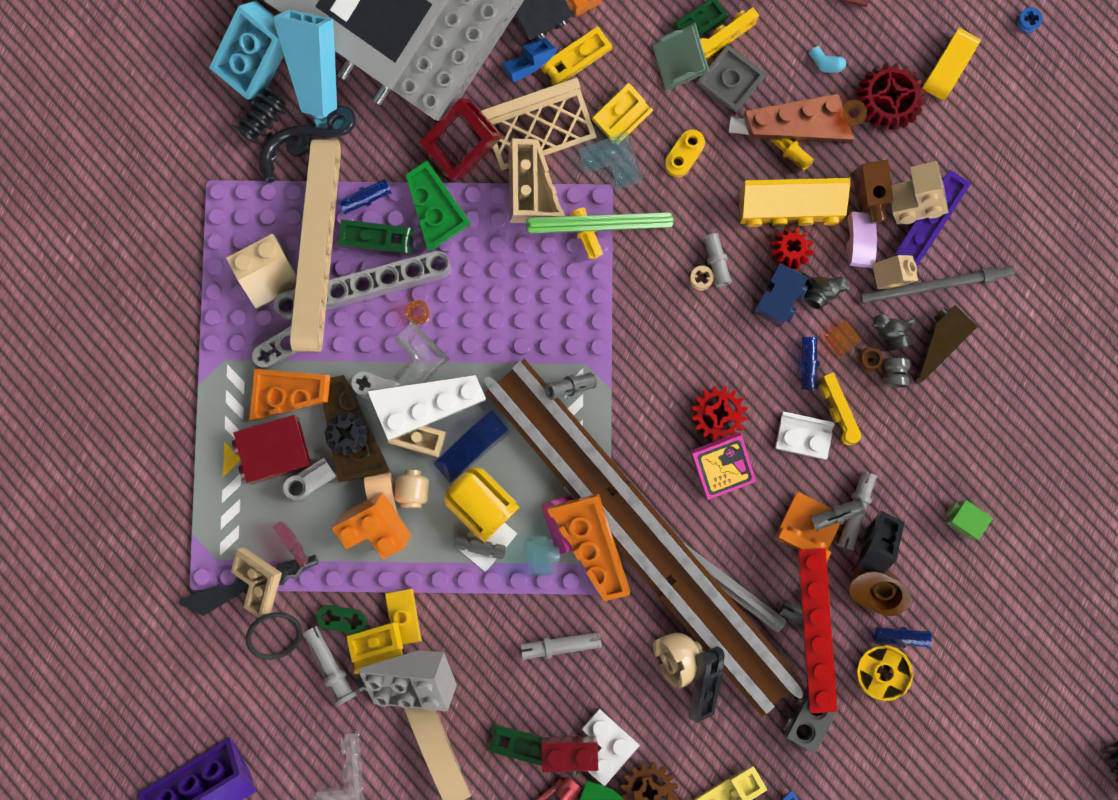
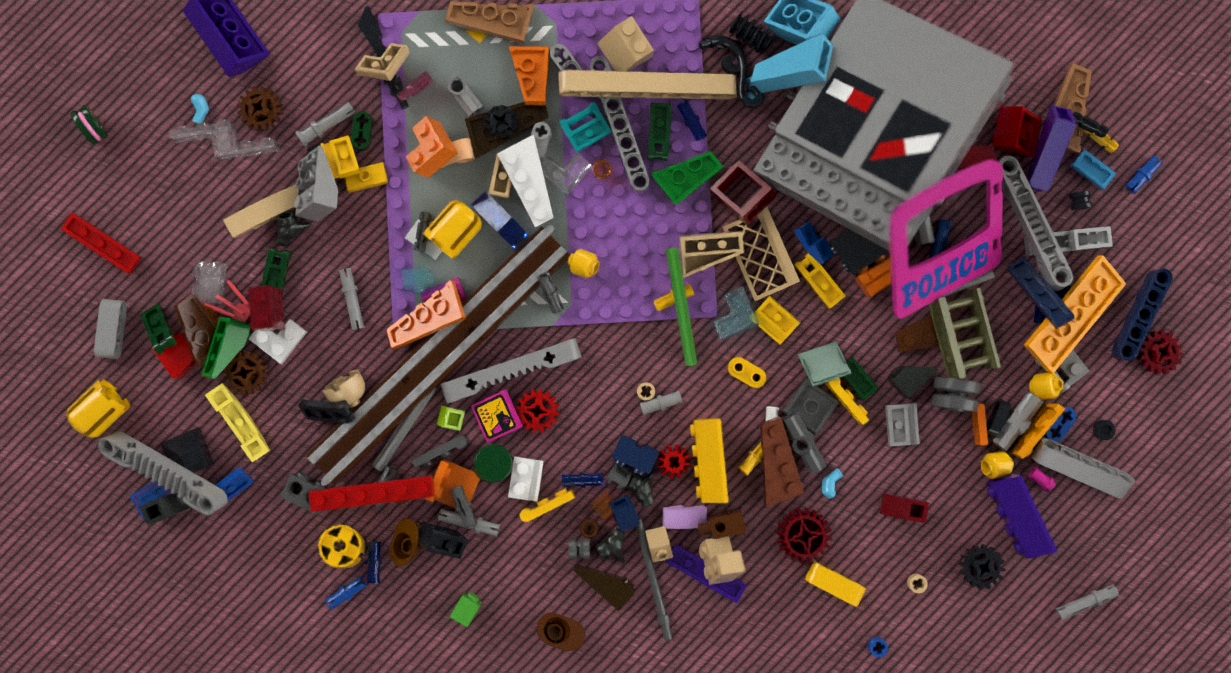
camera: 85 degrees right, 5 degrees up
(211, 442) = (501, 21): none -> medium nougat wing
(267, 616) = (334, 63): black tyre -> none
(271, 450) = (486, 65): dark red brick -> none
(311, 758) = (255, 116): none -> reddish brown gear
(369, 325) = (588, 133): none -> teal plate
(411, 489) = (462, 175): tan head -> none
(462, 722) = (288, 228): none -> pearl dark grey animal
(536, 341) = (583, 263): none -> yellow head
(685, 514) = (458, 388): none -> light grey gear
(722, 527) = (450, 418): none -> lime slope
(765, 540) = (441, 451): none -> dark grey plate
(784, 475) = (492, 463): none -> dark green head
(788, 84) = (797, 432): none -> dark grey piece
(806, 315) = (620, 475): none -> dark grey tile
(853, 104) = (780, 505): clear orange plate -> none
(854, 312) = (624, 513): none -> dark blue brick
(941, 676) = (345, 592): none -> blue pin
(1001, 400) = (560, 632): none -> reddish brown piece

